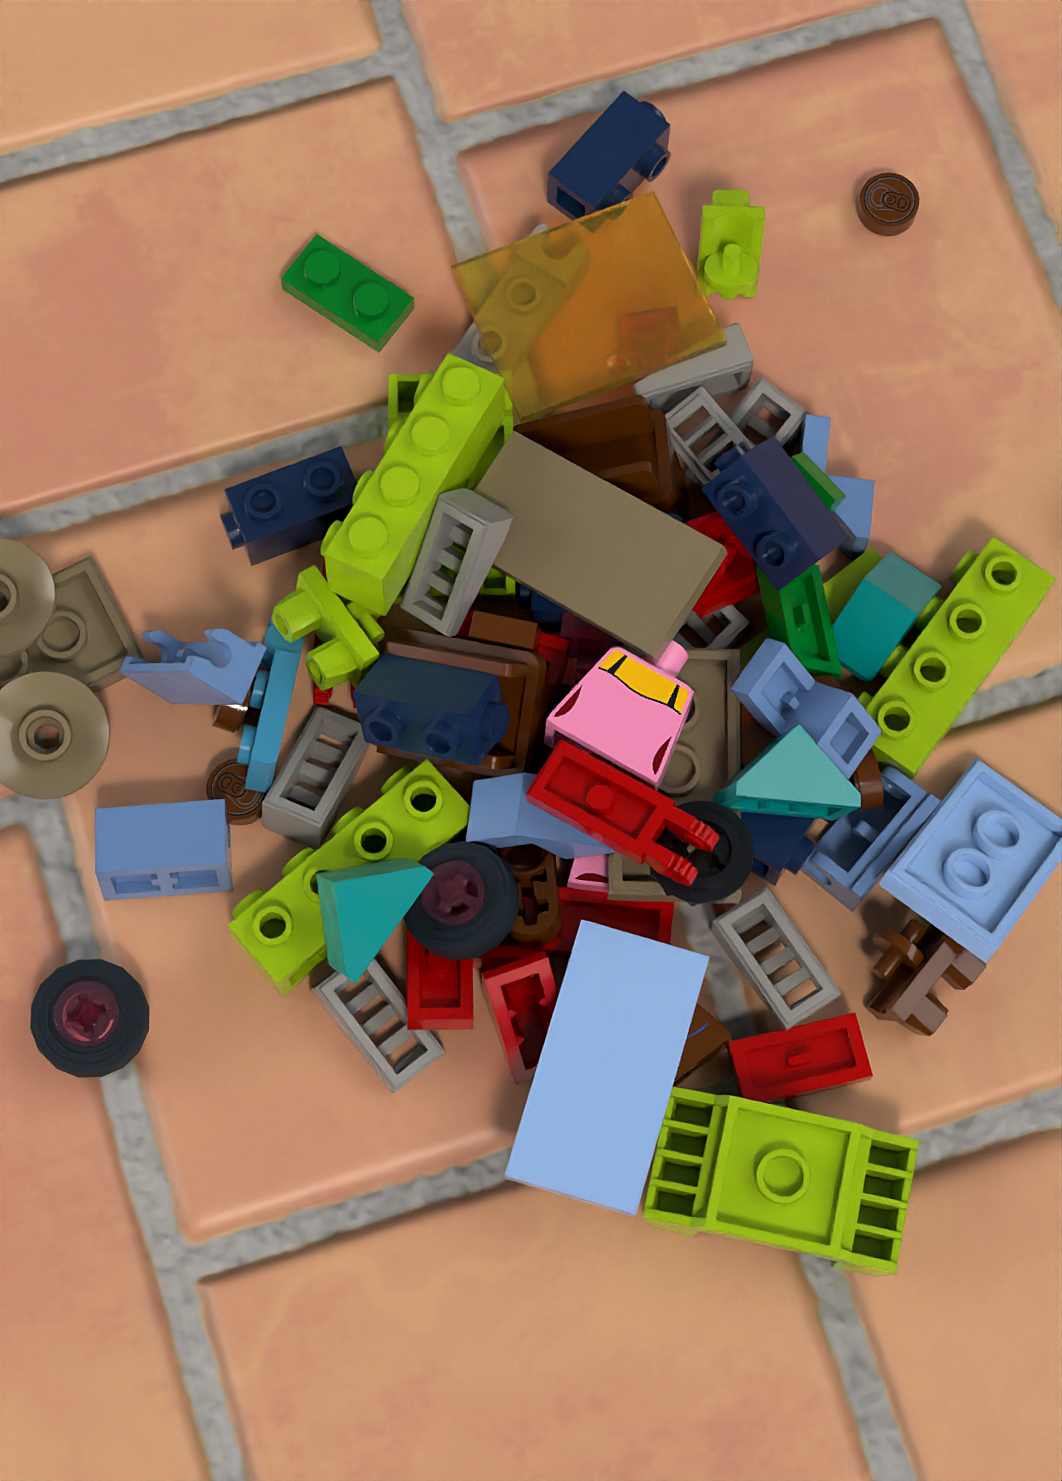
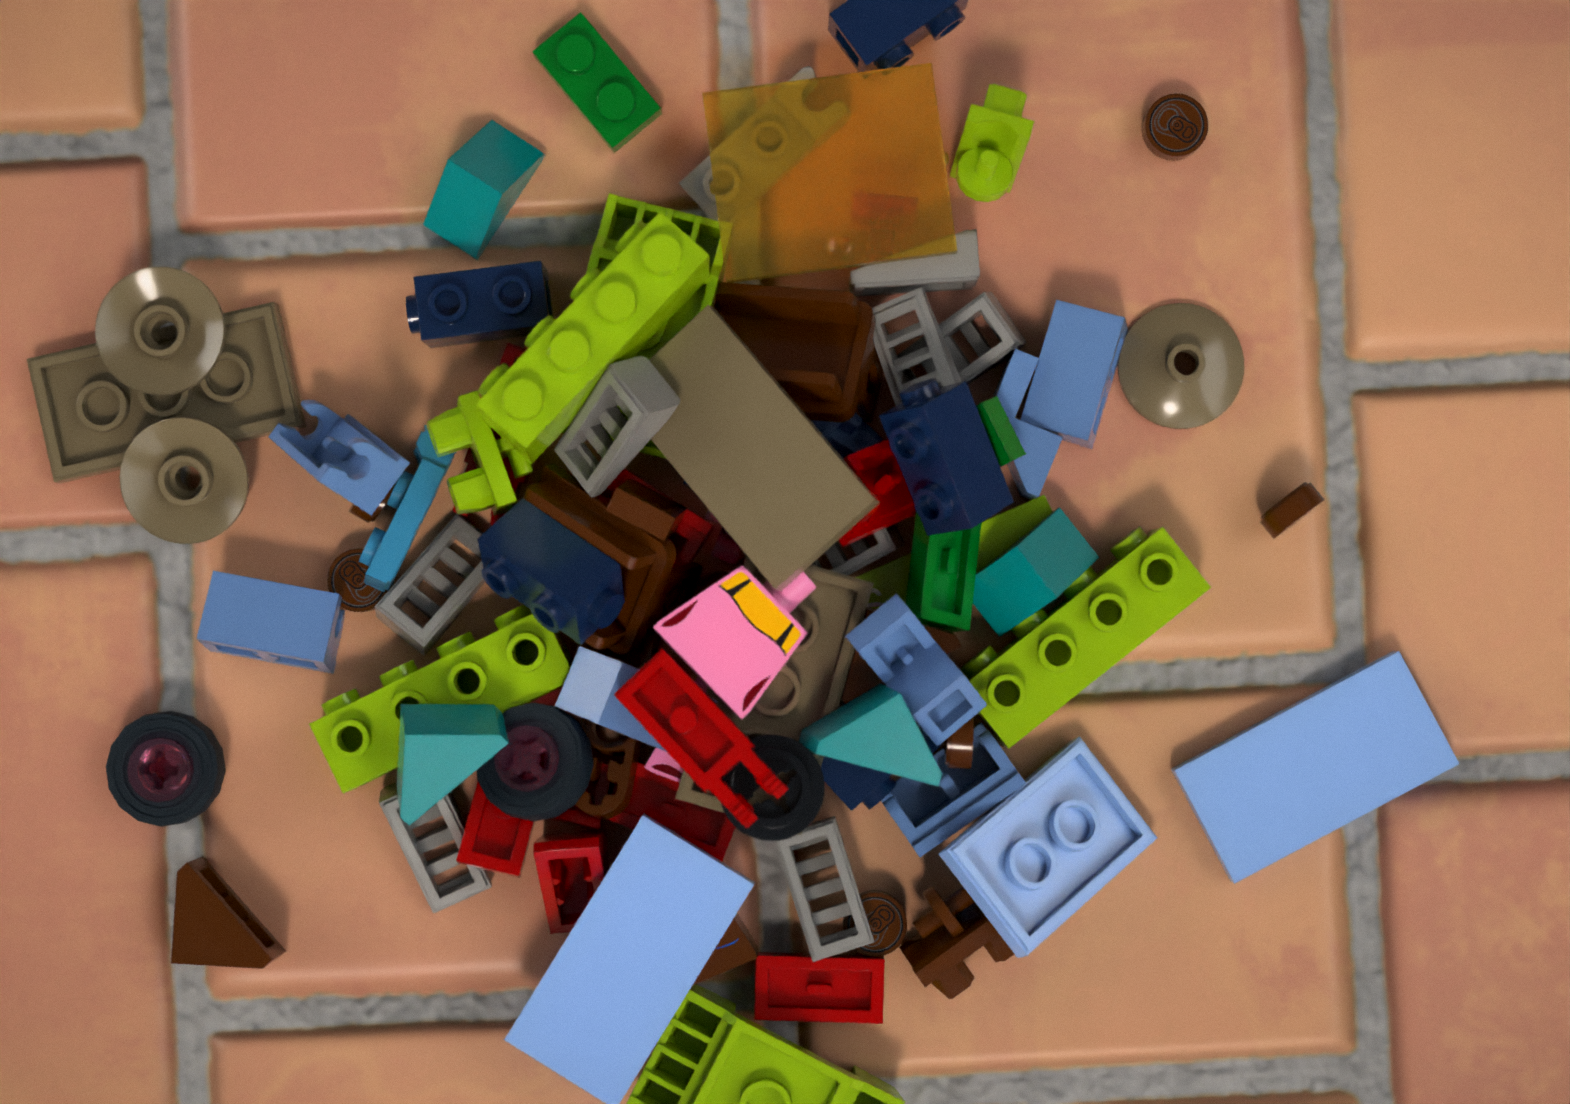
camera: 20 degrees right, 15 degrees up
(178, 1160) = (215, 924): none -> reddish brown slope
(262, 410) = (481, 187): none -> teal slope
(850, 981) = (886, 922): none -> reddish brown tile
(867, 426) = (1075, 372): none -> medium blue hinge
(953, 430) = (1156, 386): none -> dark tan dish

